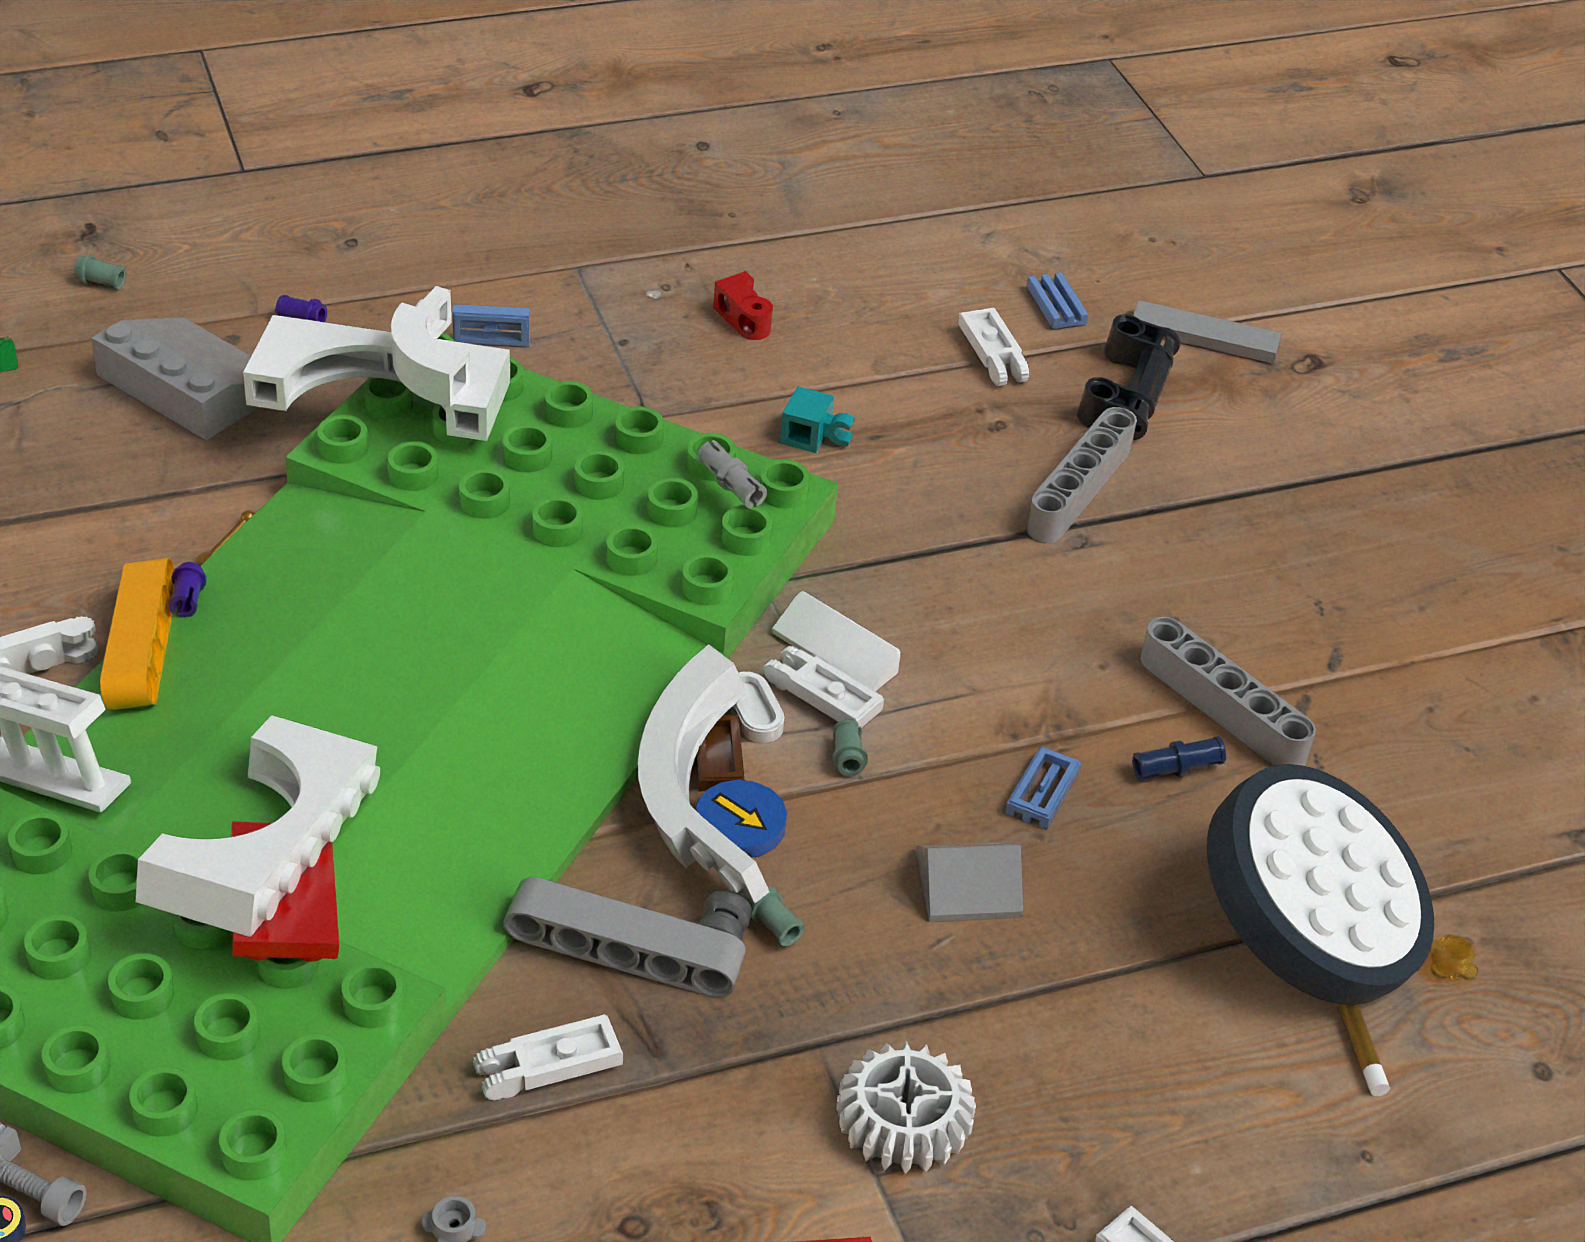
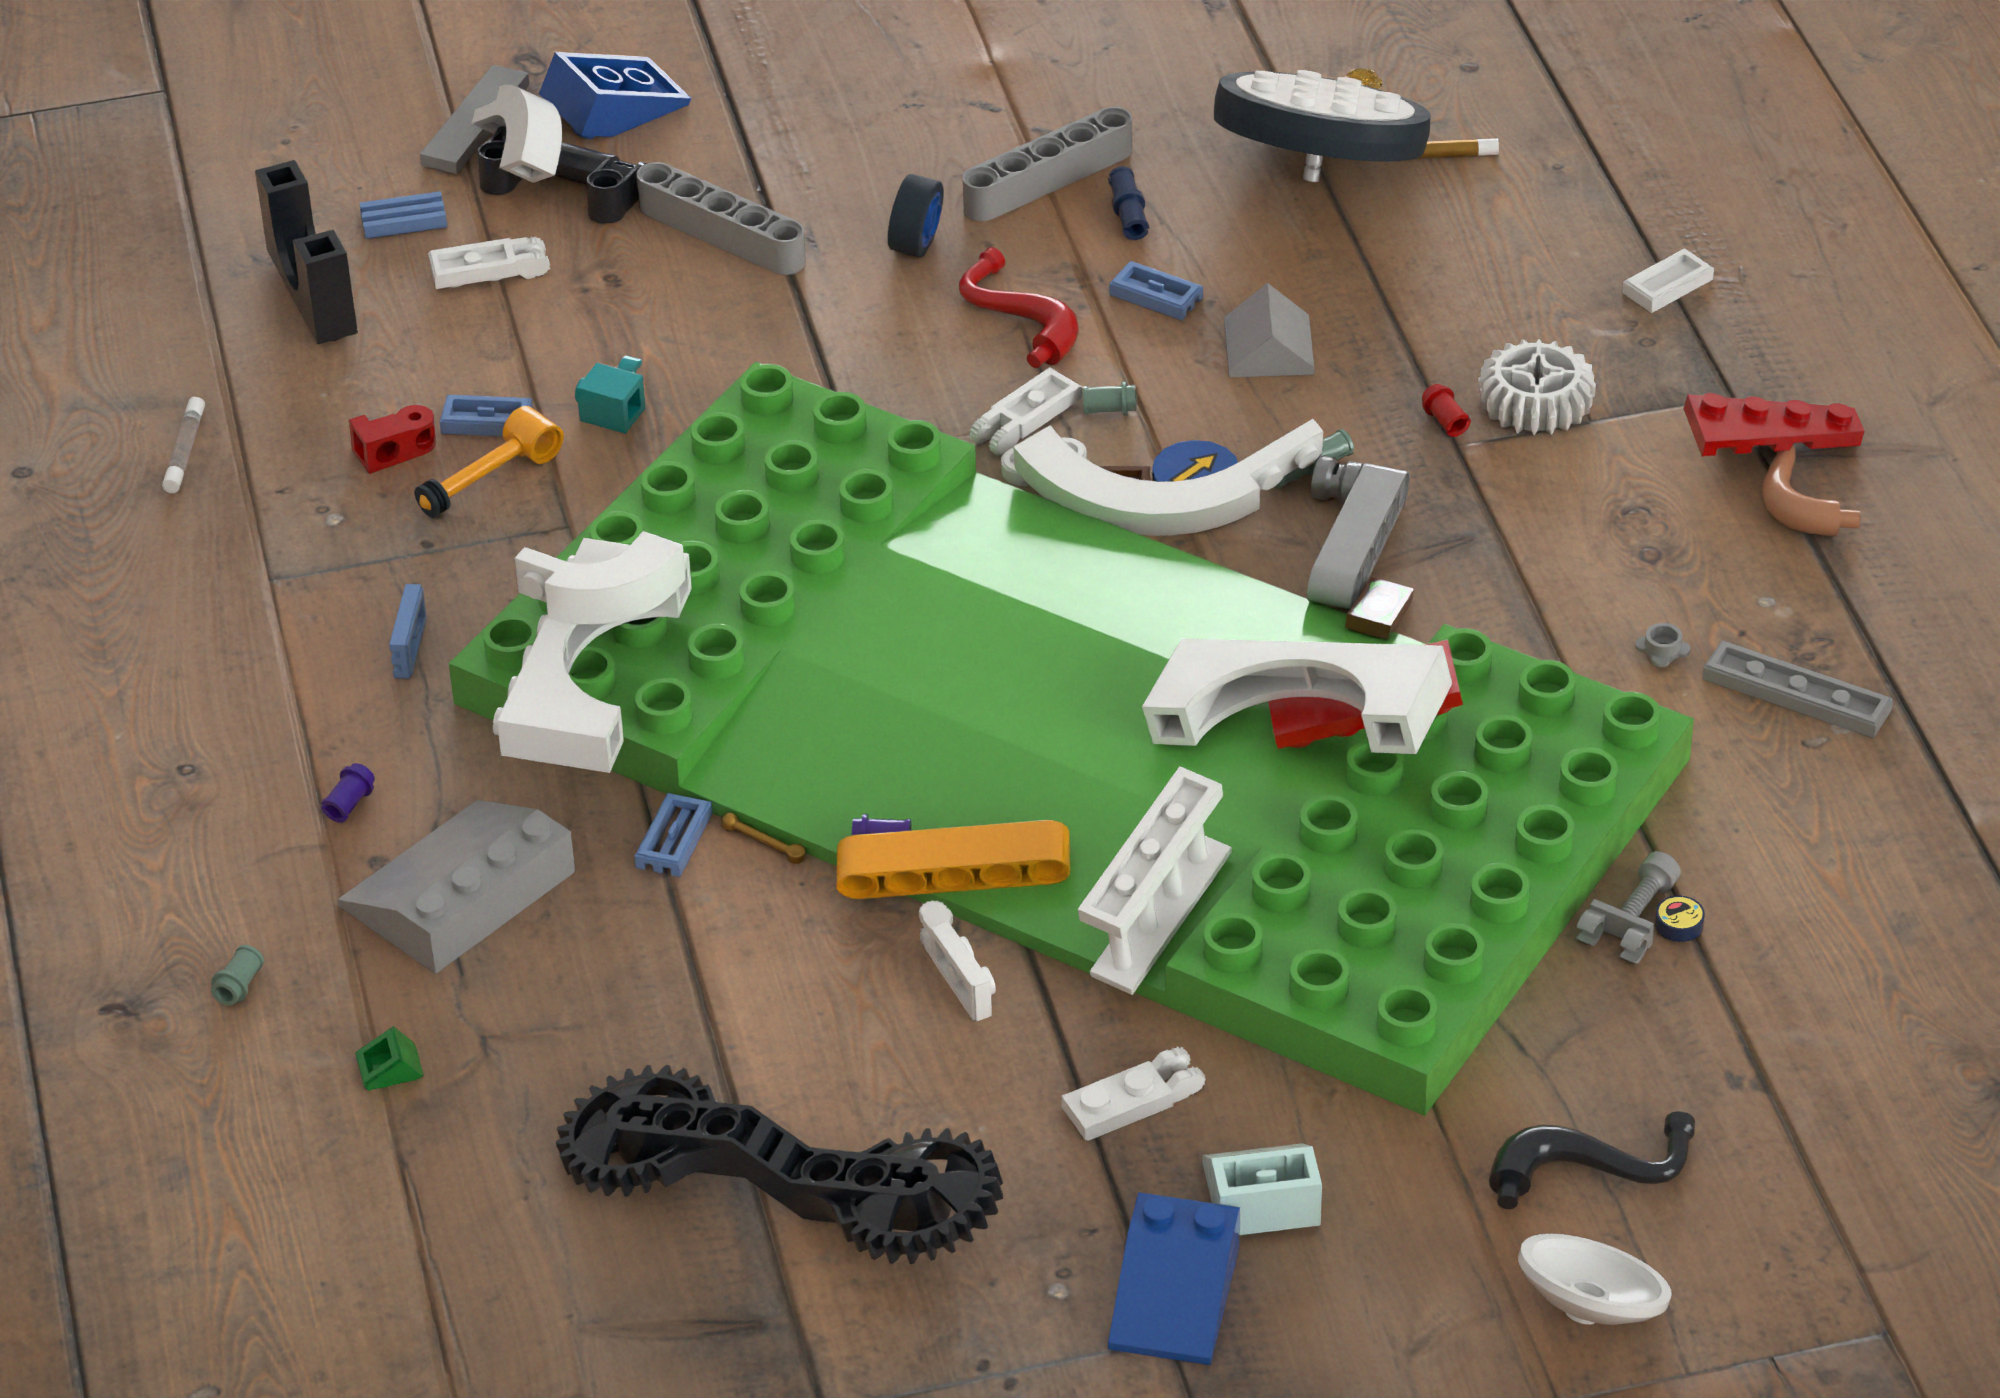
camera: 80 degrees left, 0 degrees up
(234, 486) = (664, 859): none -> medium blue tile
(511, 957) = (1379, 608): none -> reddish brown tile
(548, 1057) = (1487, 588): white hinge -> none
(732, 474) = (777, 406): light grey pin -> none
(735, 211) = (183, 445): none -> bar
(742, 379) = (524, 434): none -> light orange piece
(788, 376) = (478, 414): none -> medium blue tile
(837, 641) = (964, 394): white slope -> none
(872, 1020) = (1440, 403): none -> red pin
(974, 706) = (1057, 318): none -> red animal
(981, 235) = (308, 262): none -> black arch
(1097, 588) = (915, 215): none -> black wheel
(1151, 332) = (531, 134): none -> white arch
(1258, 399) = (609, 92): none -> blue slope

